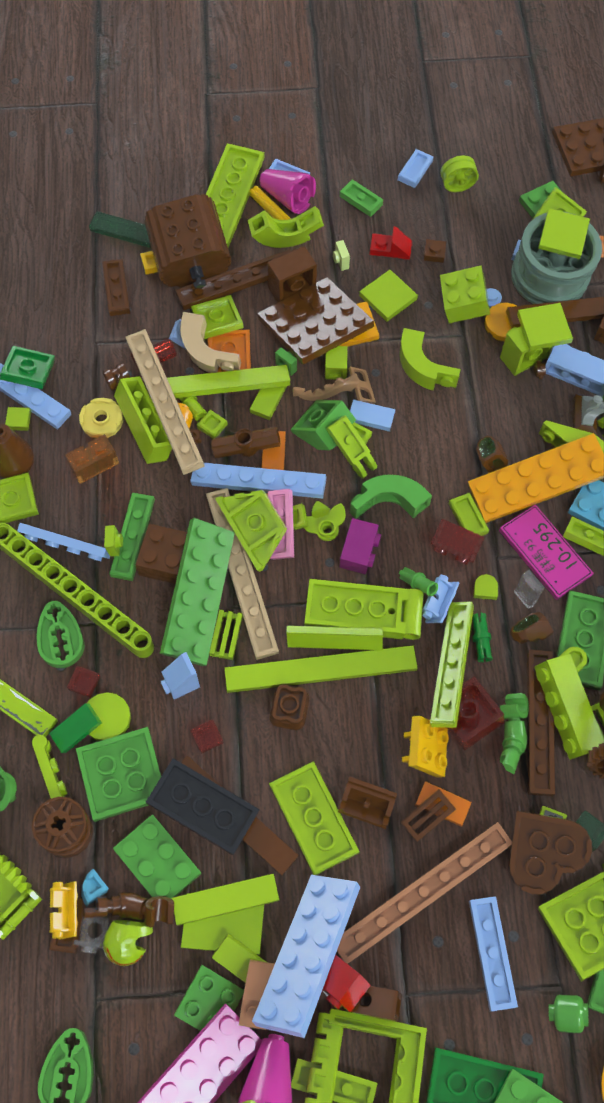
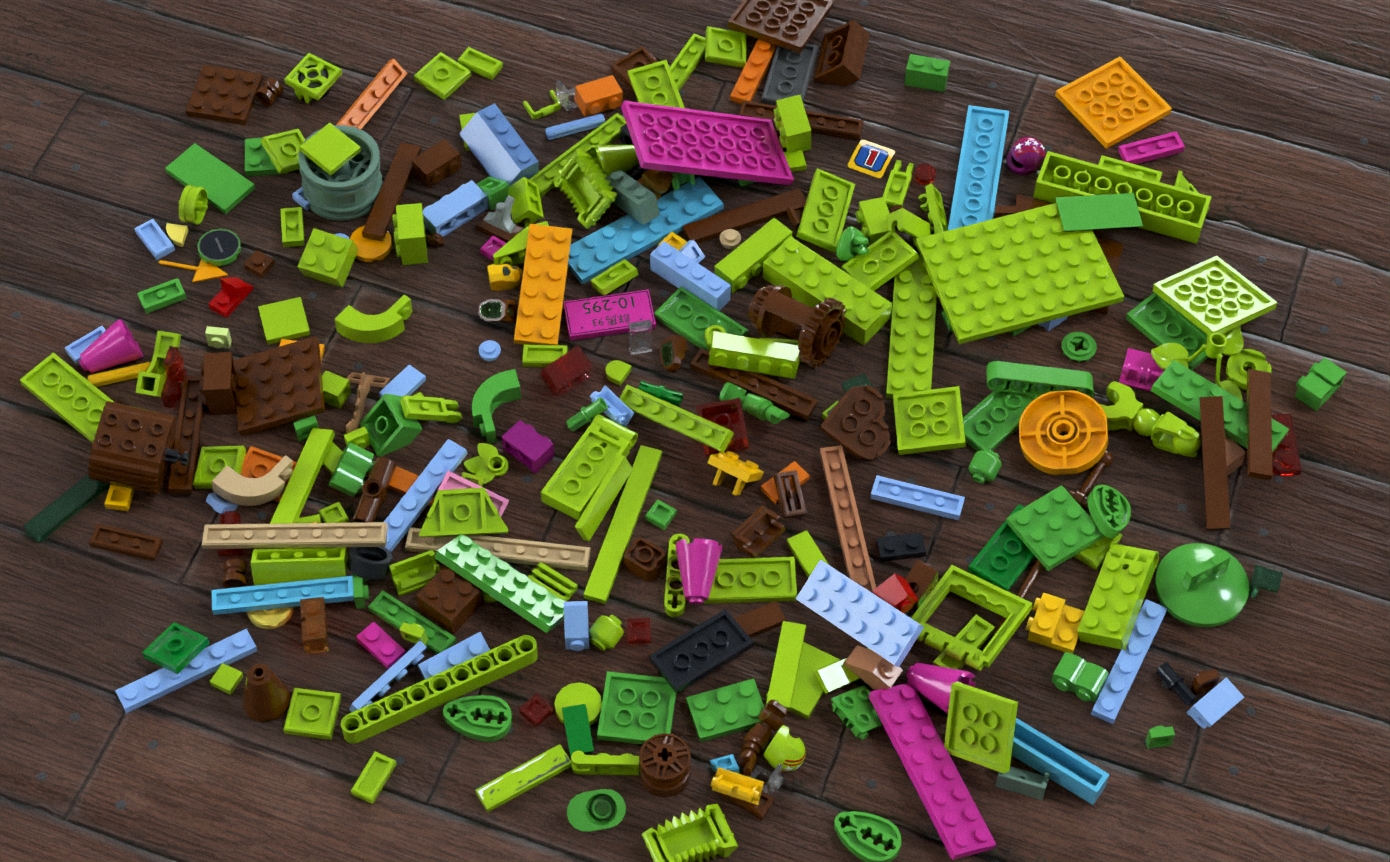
camera: 65 degrees left, 10 degrees down
(101, 515) = (380, 645): none -> dark pink plate
(109, 421) = (281, 595): none -> medium azure plate
(109, 587) = (454, 655): none -> light blue plate
(145, 476) = (360, 591): none -> bright green plate
(161, 479) = (369, 562): none -> black tyre
(178, 511) = (414, 572): none -> lime hinge
(190, 706) = (606, 632): none -> lime head
(258, 413) = (352, 469): none -> bright green brick
(288, 238) = (175, 375): none -> clear red plate
(288, 748) = (674, 575): none -> lime beam
(291, 761) = (698, 567): none -> dark pink cone
(294, 405) = (358, 437): none -> lime plate
(347, 699) = (660, 514): none -> bright green tile
(370, 863) = (805, 551): none -> lime tile
(405, 218) = (203, 271): none -> light orange piece
(426, 960) = (901, 547): none -> black plate
(429, 180) = (177, 233): none -> light yellow tile
(433, 214) = (219, 247): none -> black tile
(447, 467) = (489, 350): none -> light blue plate
(486, 255) = (292, 227): none -> lime plate
(498, 177) = (200, 168): none -> bright green tile
(531, 440) = (504, 276): none -> yellow rock
(545, 326) = (410, 207): lime tile -> none
(561, 417) = (491, 247): none -> dark pink tile

